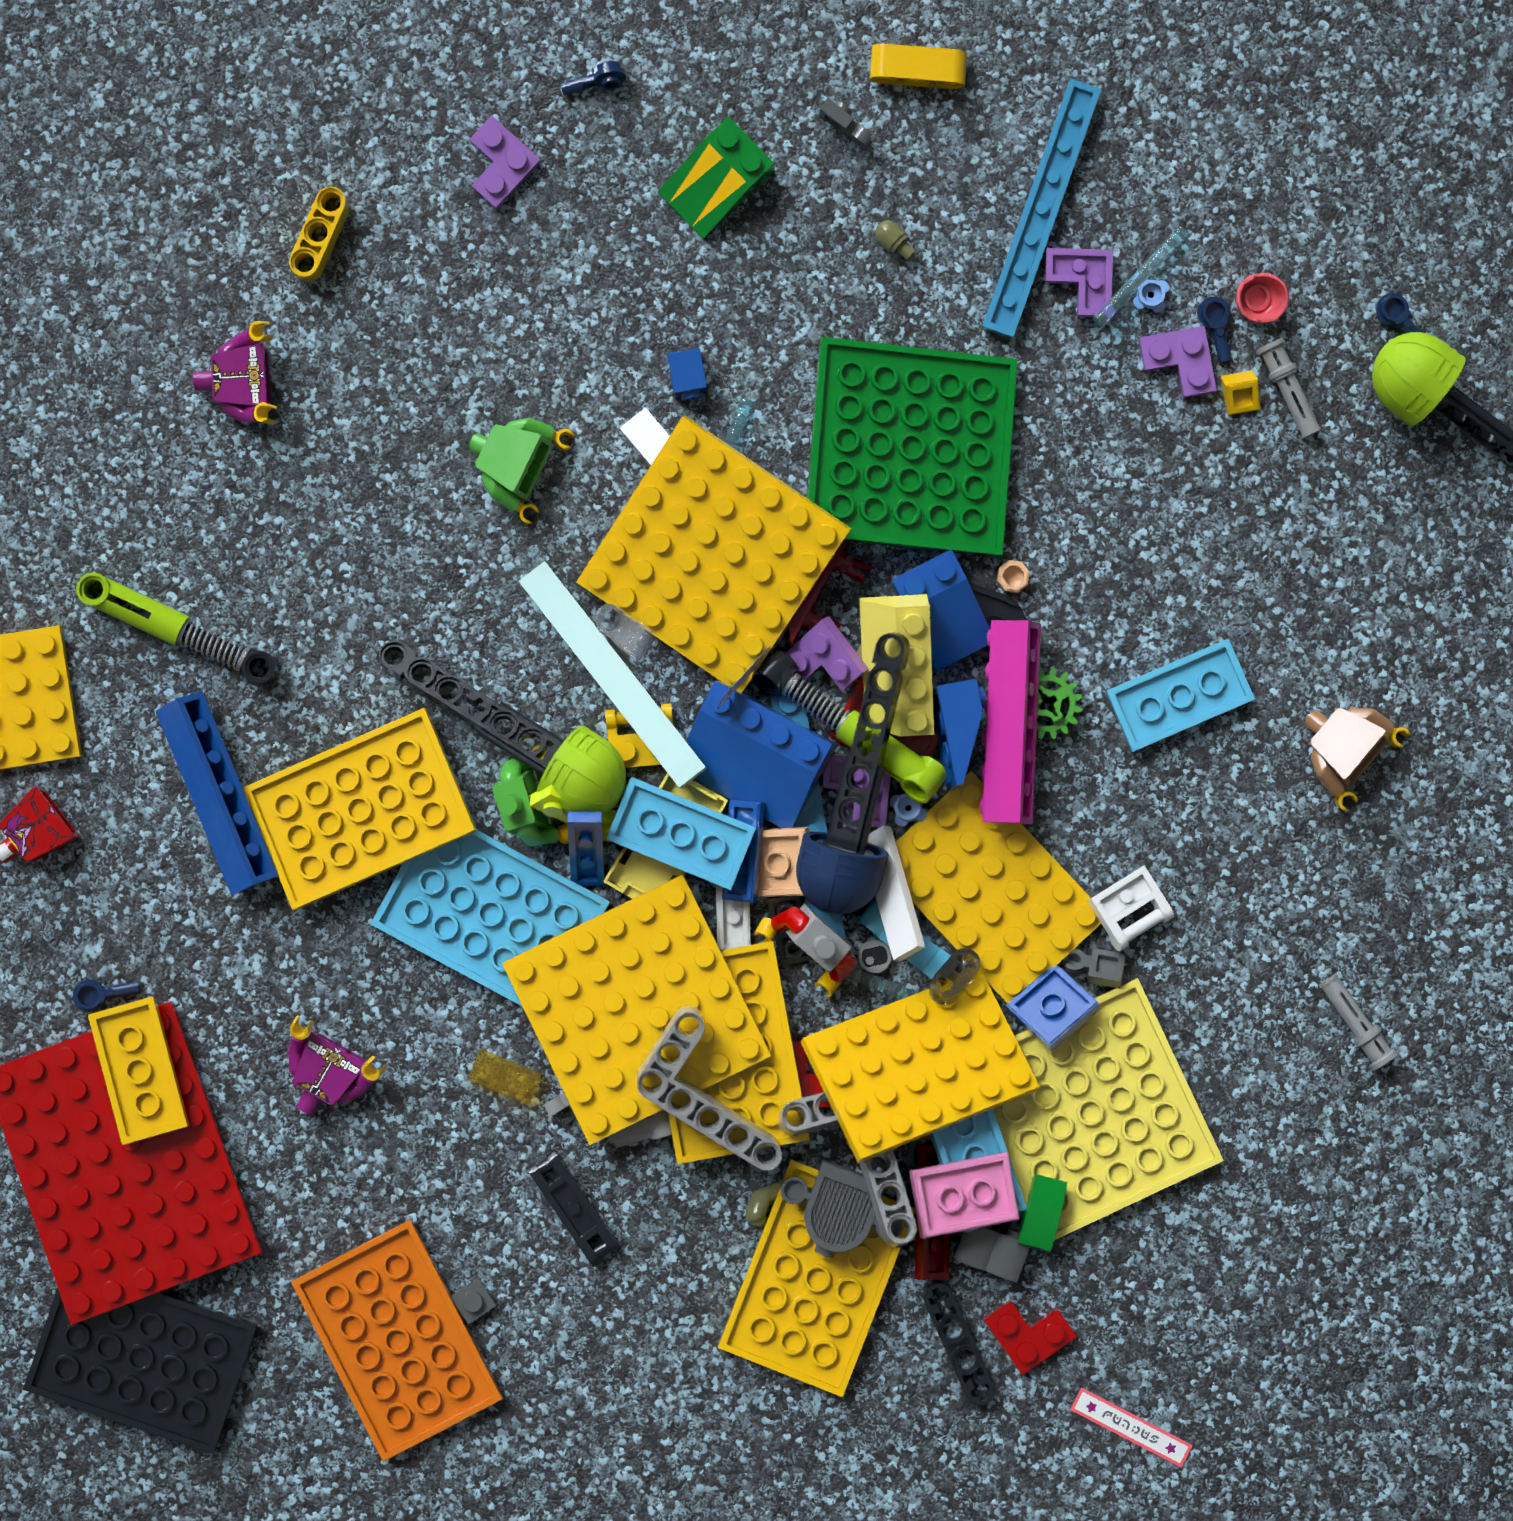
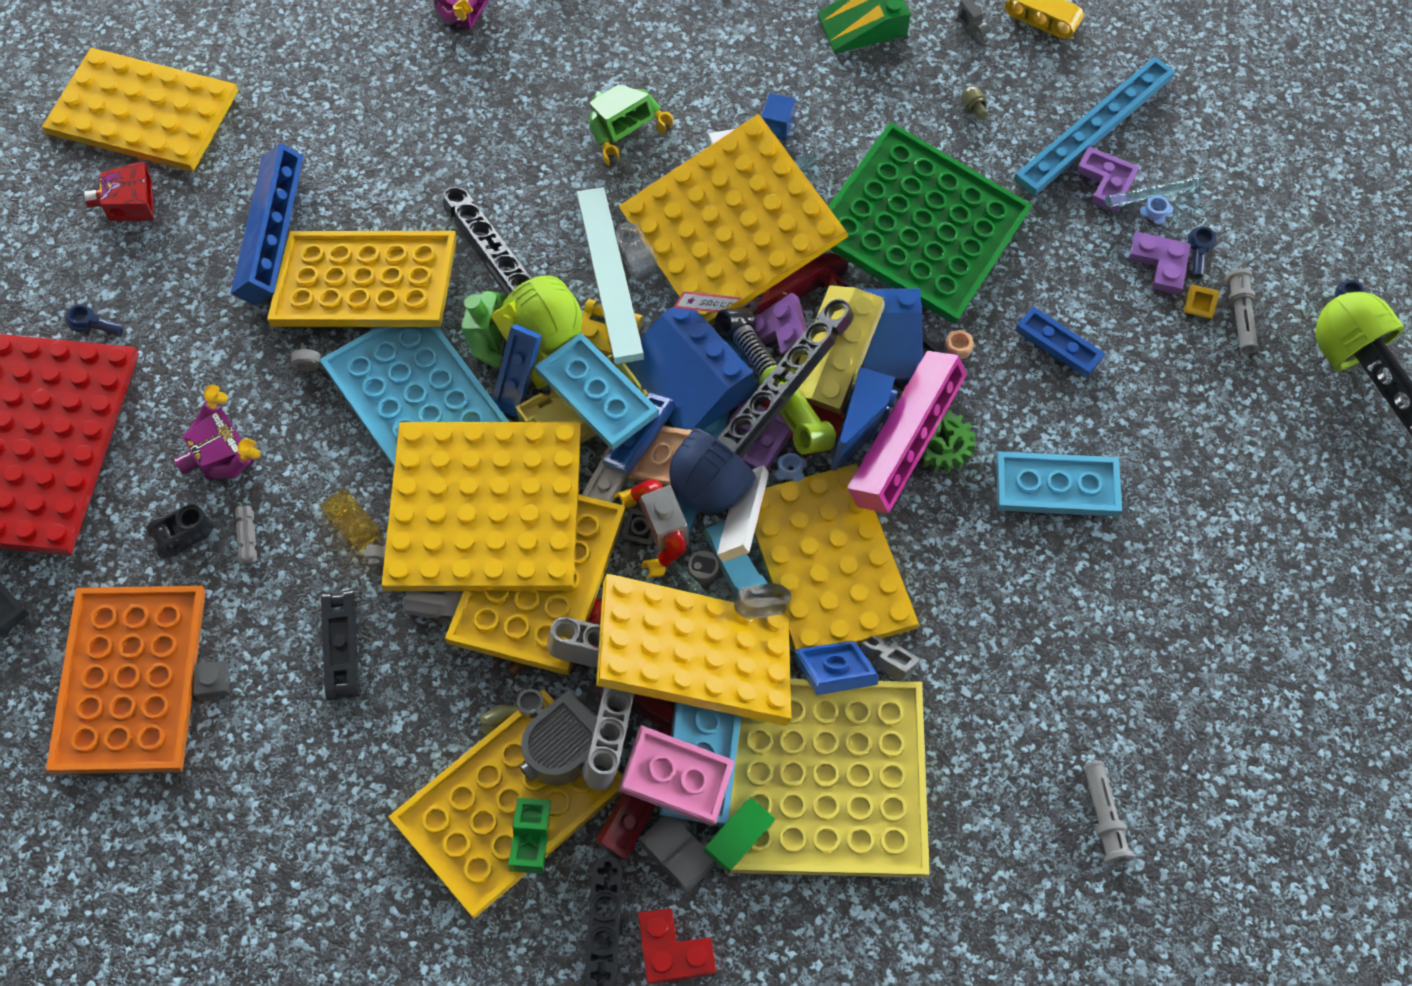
camera: 25 degrees right, 25 degrees down
(138, 1070) = (73, 373): yellow plate -> none
(174, 627) = (314, 118): piece -> none
(346, 1179) = (178, 530): none -> black piece
(355, 930) = (305, 360): none -> light grey tile
(413, 1144) = (246, 534): none -> light grey axle
(700, 1101) = (488, 584): light grey beam -> none
(856, 1304) = (530, 835): none -> green slope
(1115, 522) = (1060, 342): none -> blue plate
(1125, 898) = (941, 613): white plate -> none
(1262, 298) = (1246, 241): coral hair -> none
(1348, 745) = (1189, 579): torso -> none

